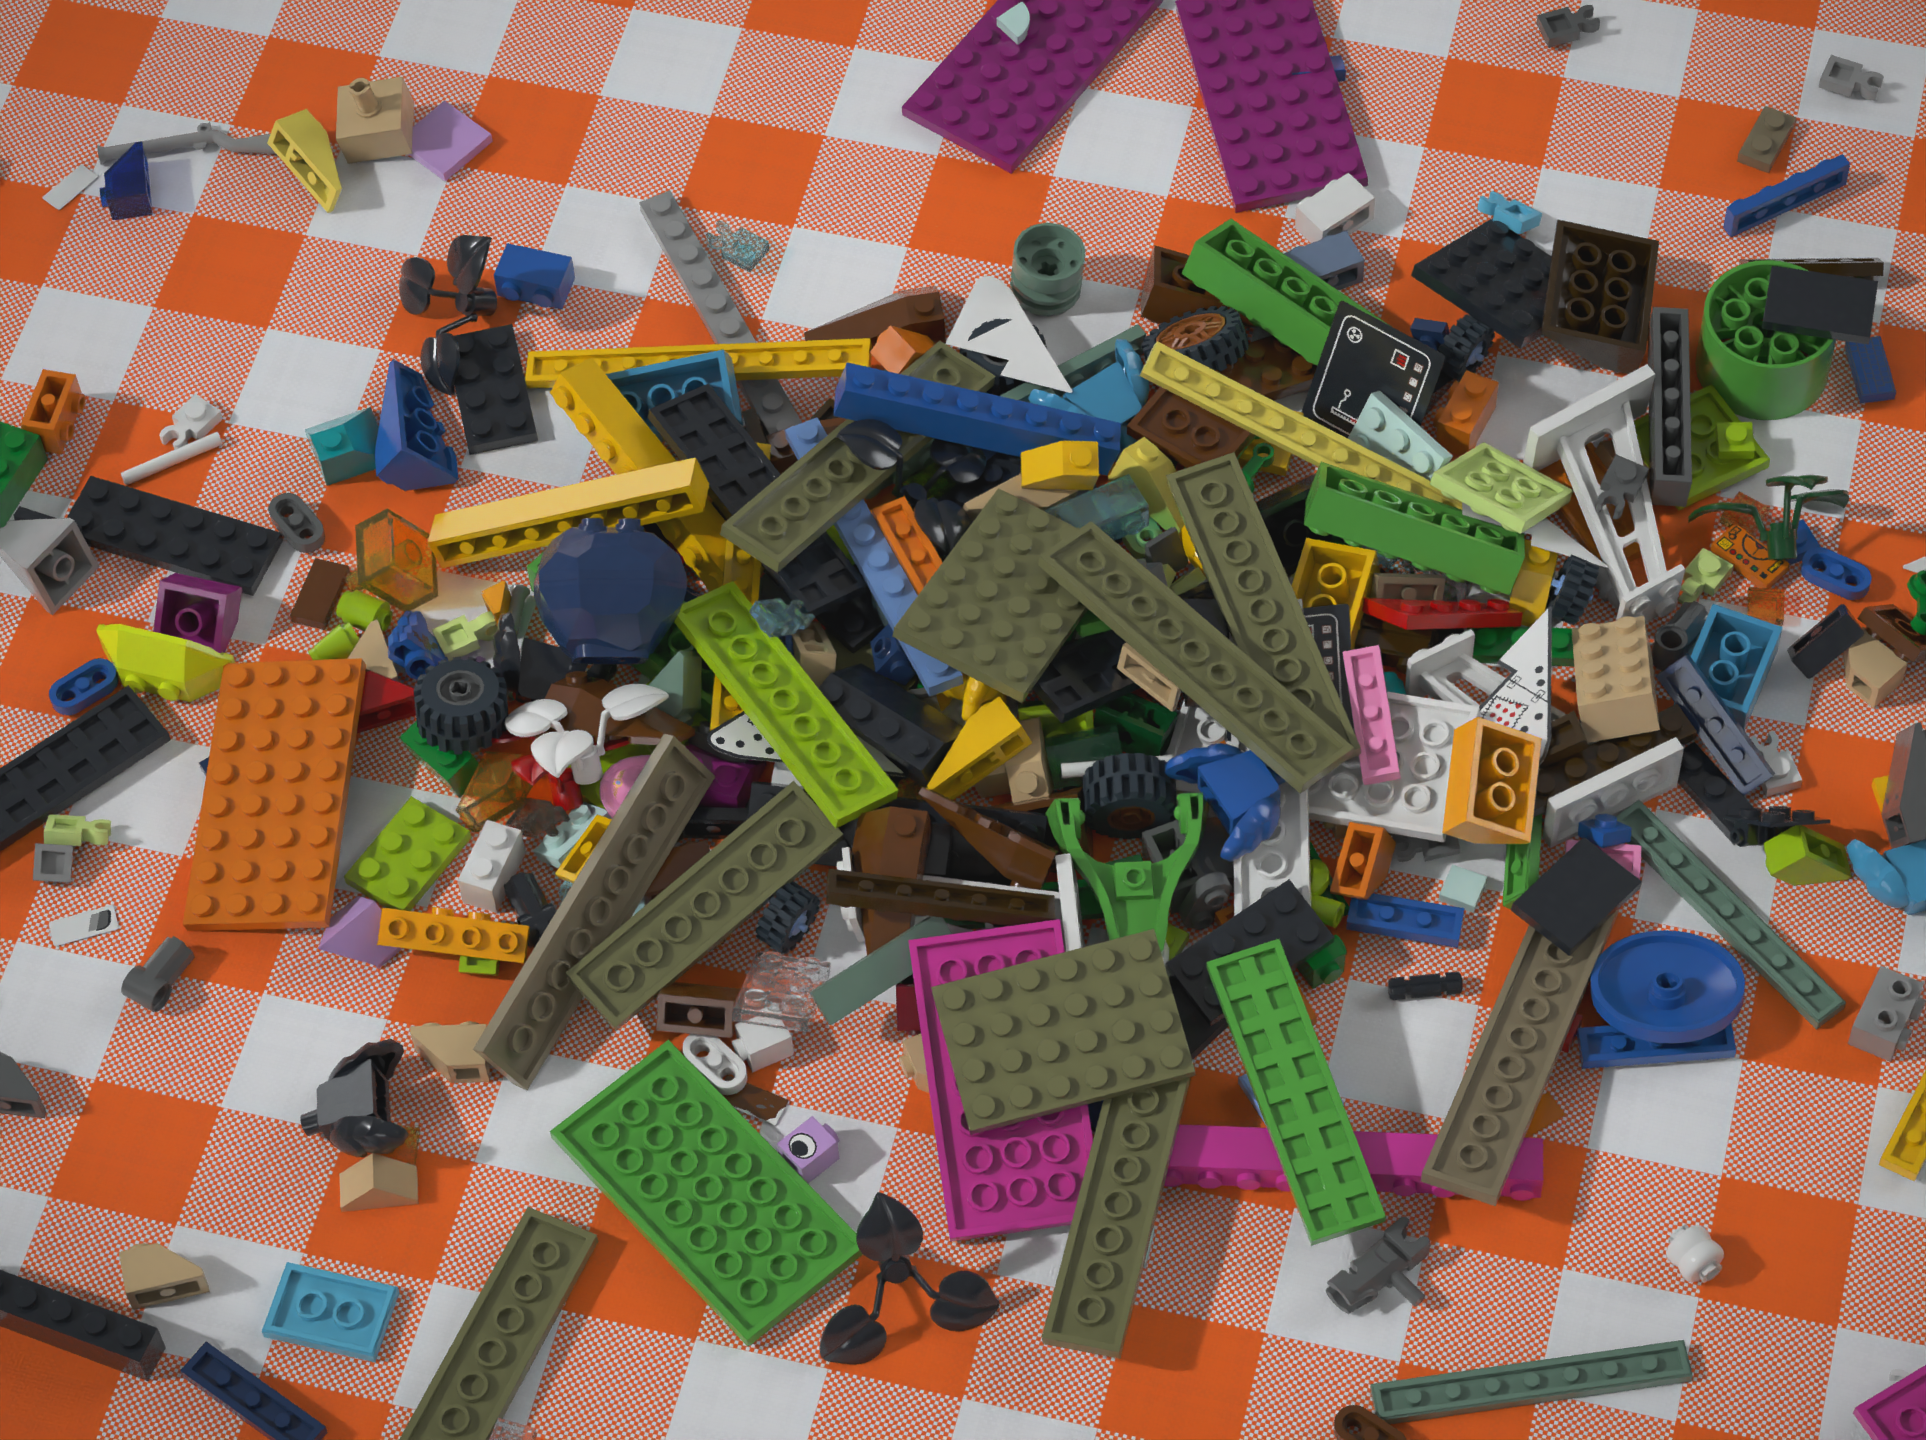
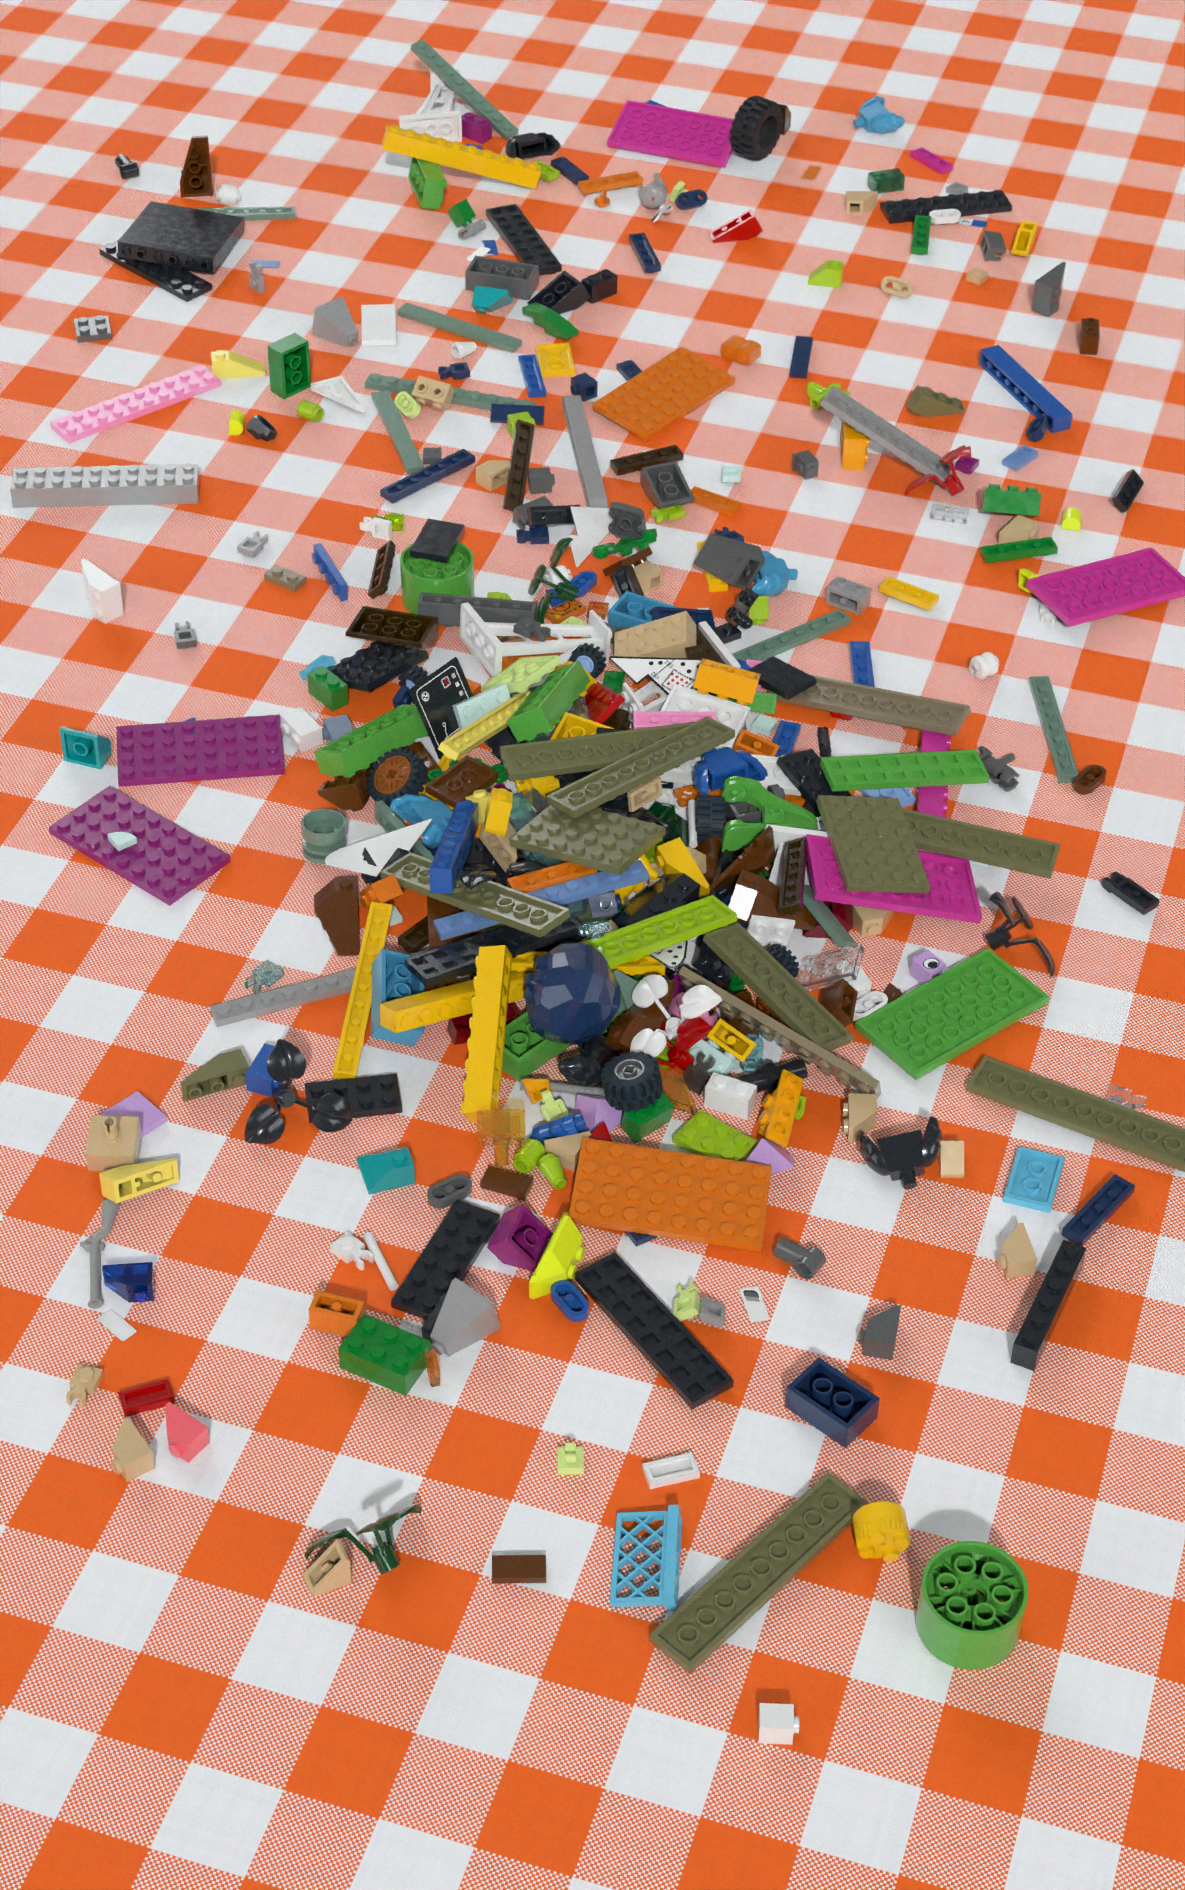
camera: 90 degrees left, 15 degrees down
(409, 438) = (399, 1132): blue wedge -> none
(521, 216) = (217, 1075): none -> olive slope
(1444, 225) = (327, 688): none -> green brick
(1667, 986) = (836, 653): blue dish -> none
(1840, 530) = (552, 577): none -> white piece

